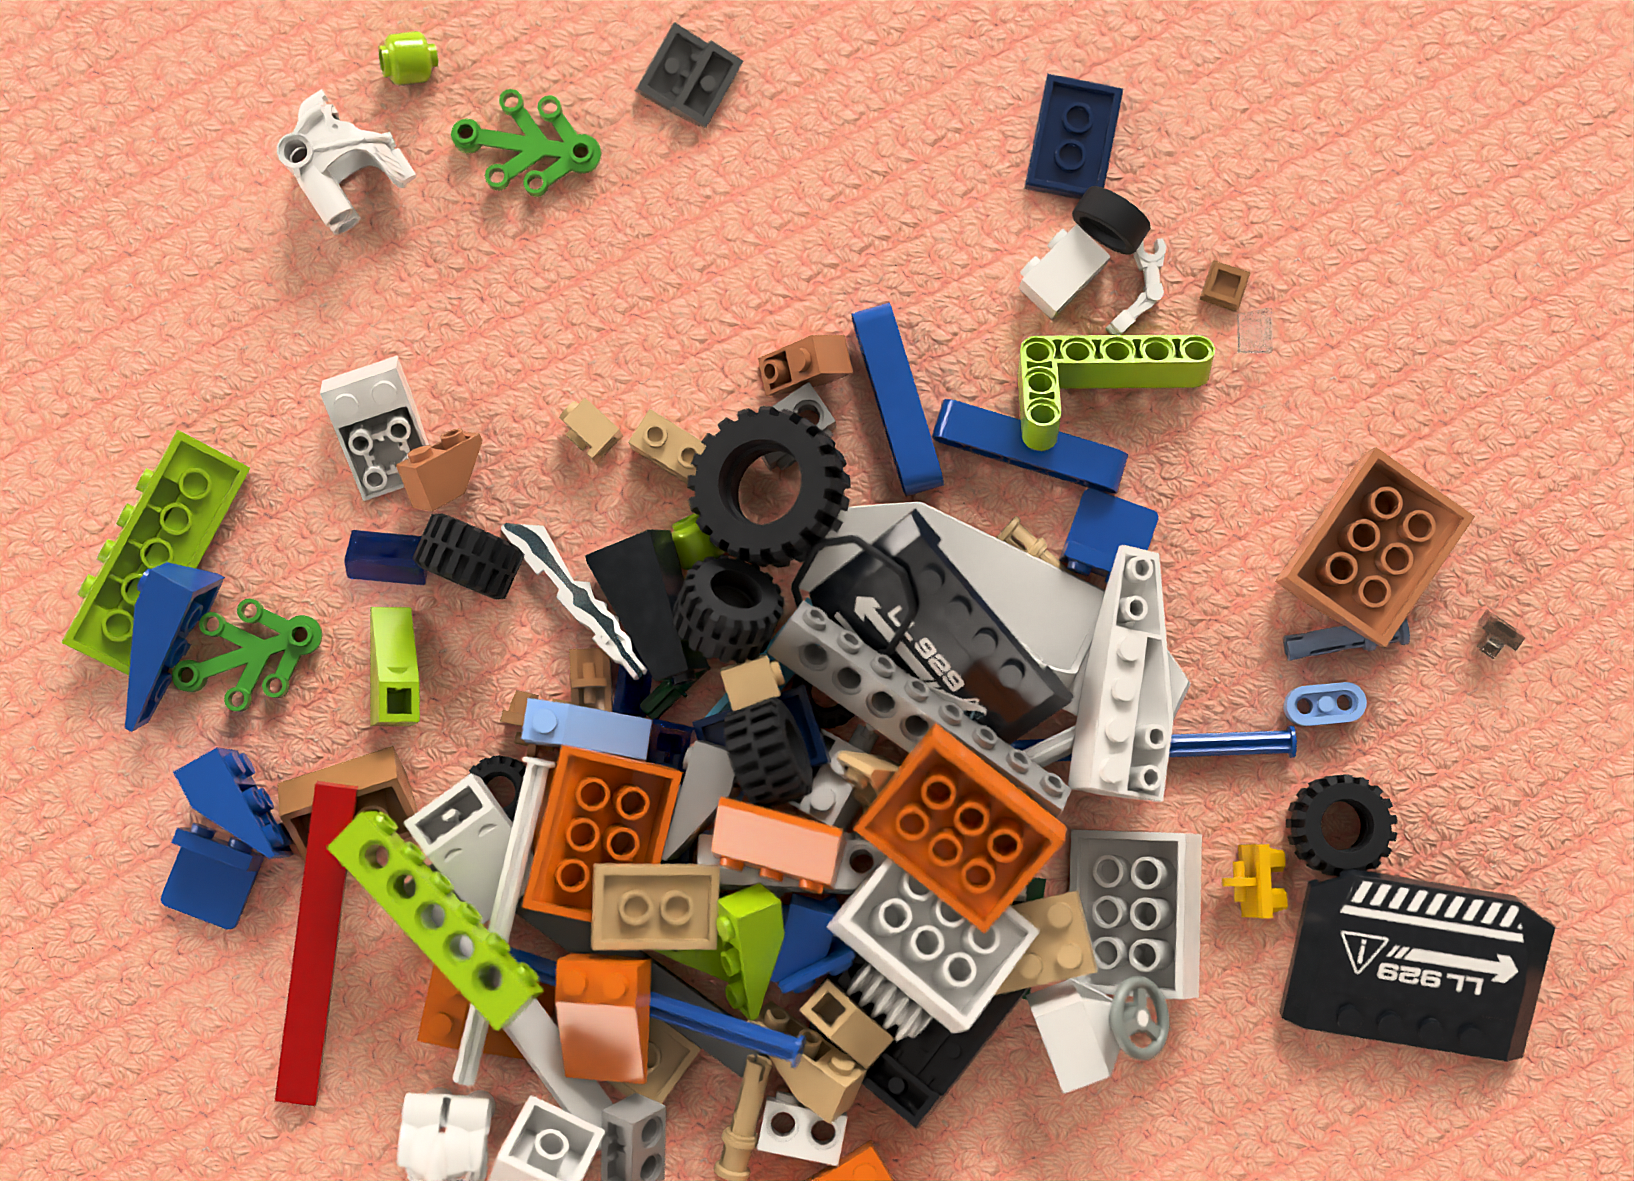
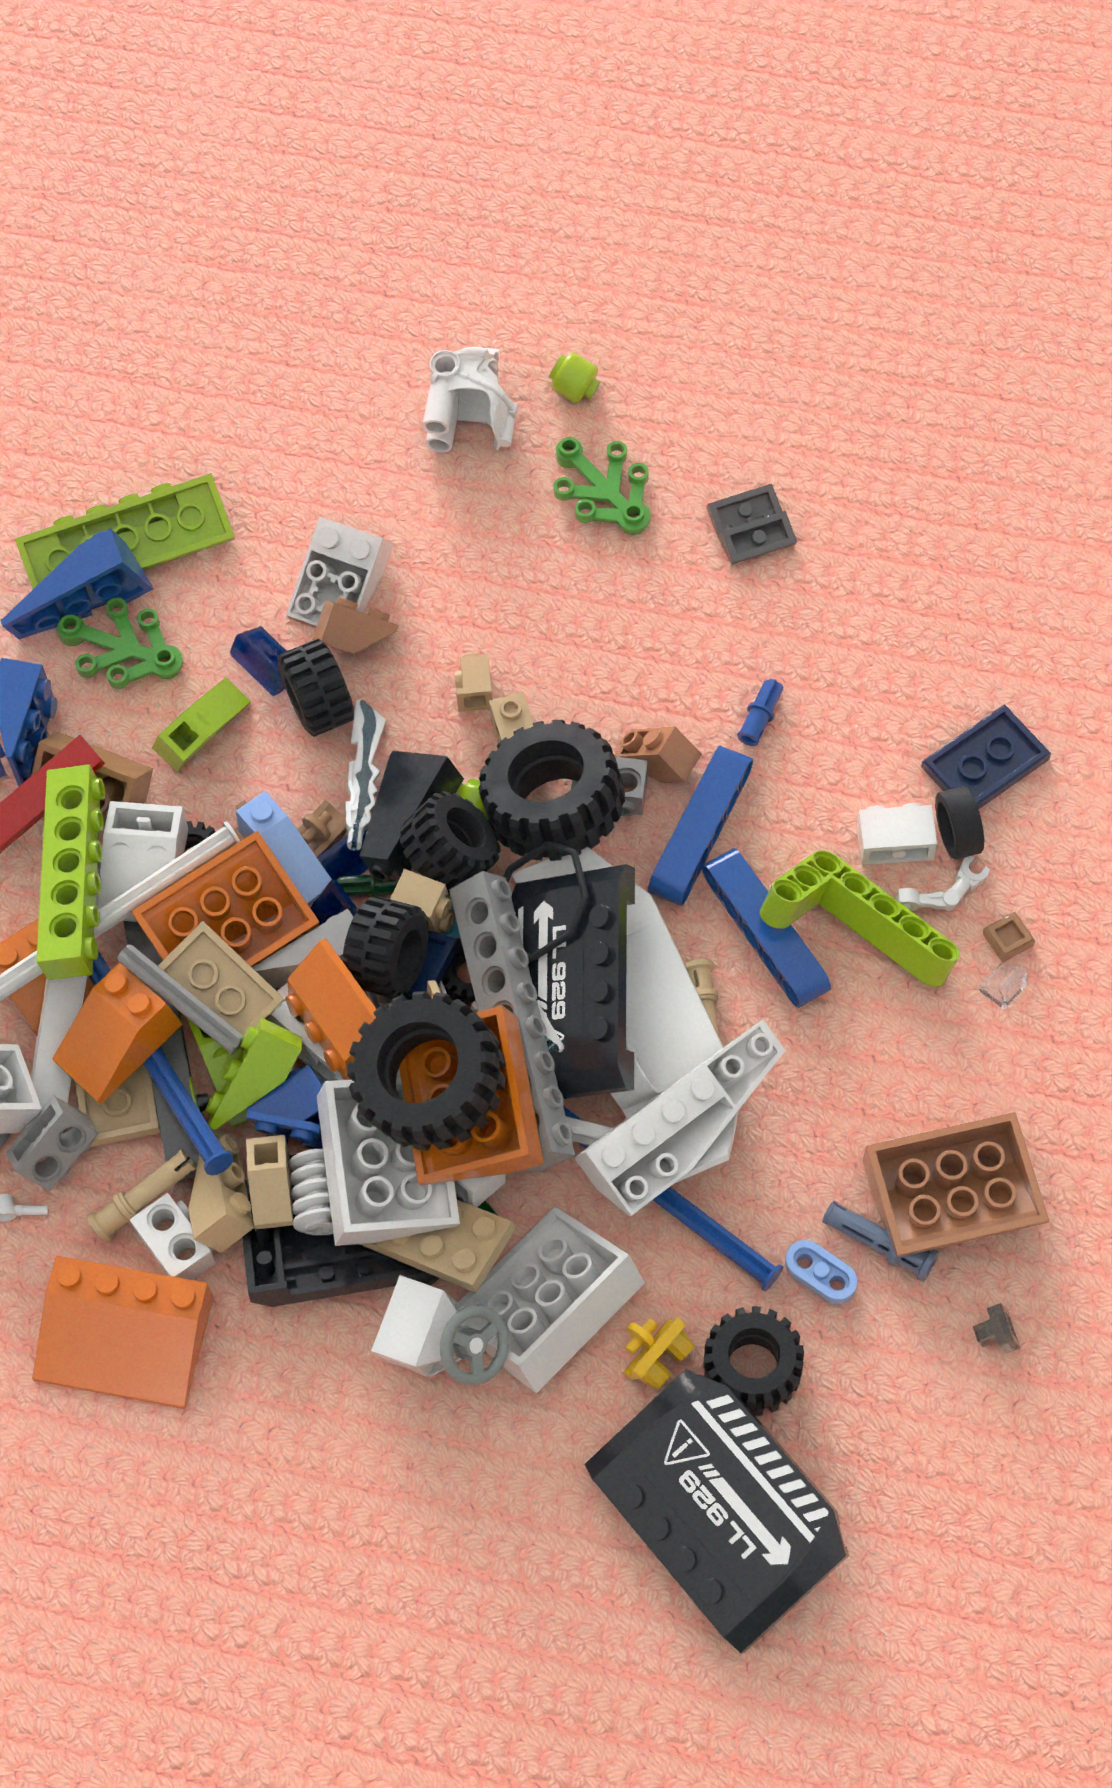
camera: 45 degrees right, 20 degrees down
(639, 947) = (180, 998): none -> light grey axle
(716, 999) = (200, 1100): none -> piece
(853, 250) = (760, 712): none -> blue axle
(927, 904) = (393, 1037): none -> black tyre
(1100, 528) = (780, 1016): blue bracket -> none

